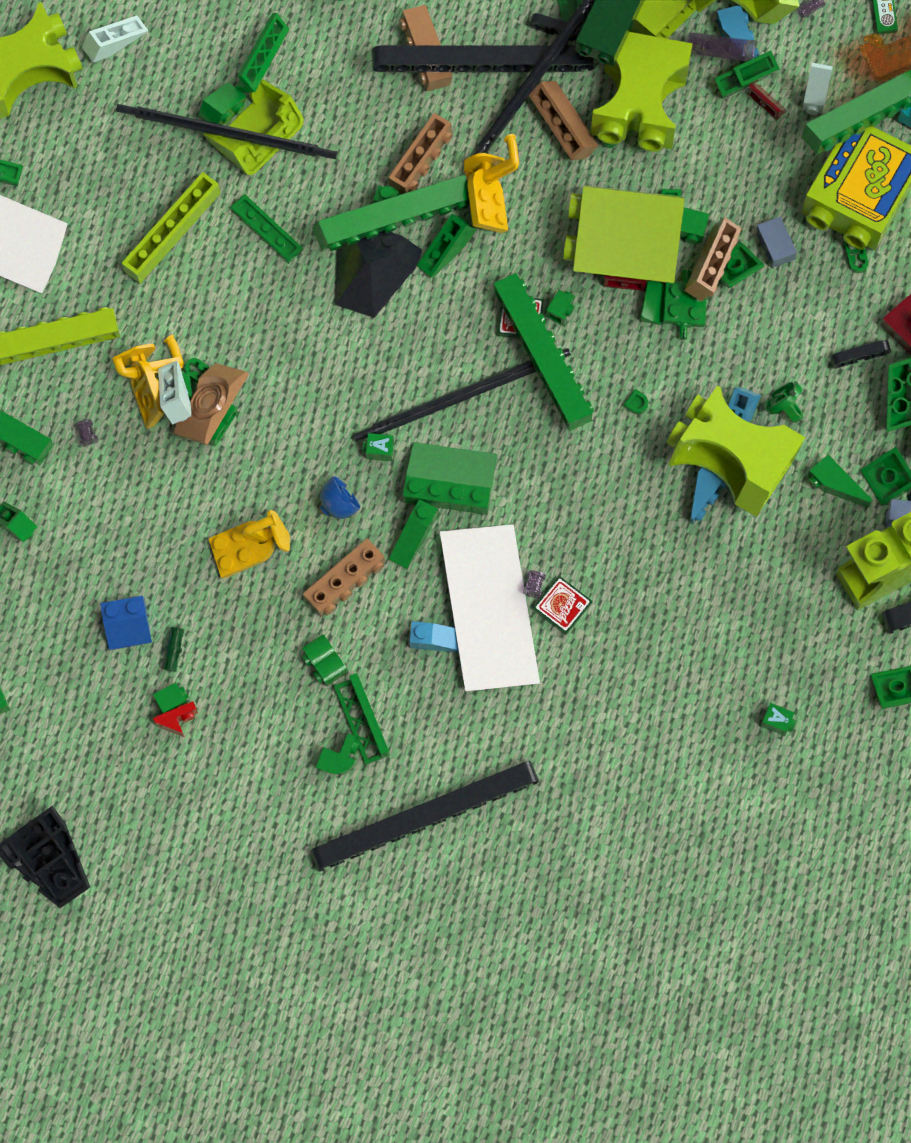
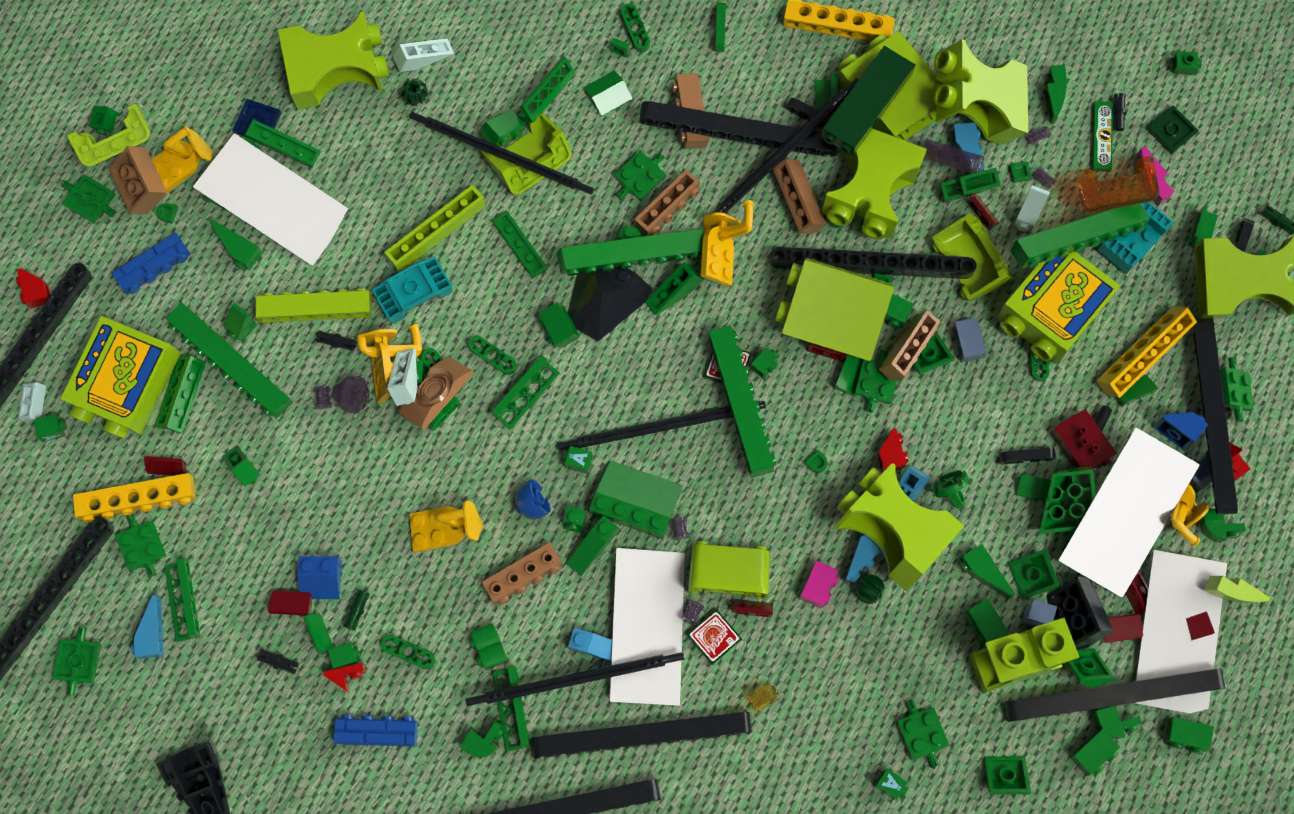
camera: 10 degrees right, 0 degrees up
(87, 369) = (336, 341): none -> black pin
(100, 655) = (290, 603): none -> dark red slope
(100, 718) = (278, 661): none -> black pin
(109, 86) = (412, 86): none -> dark green piece
(118, 421) = (351, 394): none -> clear purple tile
(138, 681) = (318, 633): none -> green slope
(159, 297) = (412, 288): none -> teal plate
(222, 770) = (376, 732): none -> blue brick
(254, 681) = (392, 651): none -> green beam
(259, 345) = (478, 352): none -> green beam
(300, 382) = (520, 387): none -> green fence
(328, 308) = (559, 325): none -> green brick
(329, 44) = (608, 93): none -> slope
(383, 129) = (640, 175): none -> green plate
(388, 510) = (574, 519): none -> green brick
(423, 674) = (574, 679): none -> black axle
(503, 499) = (679, 528): none -> clear purple bush
(504, 719) = (641, 734): none -> black beam
(565, 532) = (729, 570): none -> lime windscreen
(598, 568) = (753, 608): none -> dark red slope
(626, 657) = (763, 697): none -> clear yellow brick
(663, 529) = (818, 585): none -> dark pink brick
(665, 172) = (881, 259): none -> black beam
(715, 374) = (892, 452): none -> red slope
(718, 523) = (870, 589): none -> dark green piece
(764, 152) = (970, 239): none -> lime windscreen
(799, 50) = (1020, 172): none -> green tile
(801, 662) = (922, 733): none -> green plate
(825, 51) = (1042, 176): none -> pin
(843, 531) = (986, 622): none -> green brick
(871, 386) = (1033, 487): none -> green slope

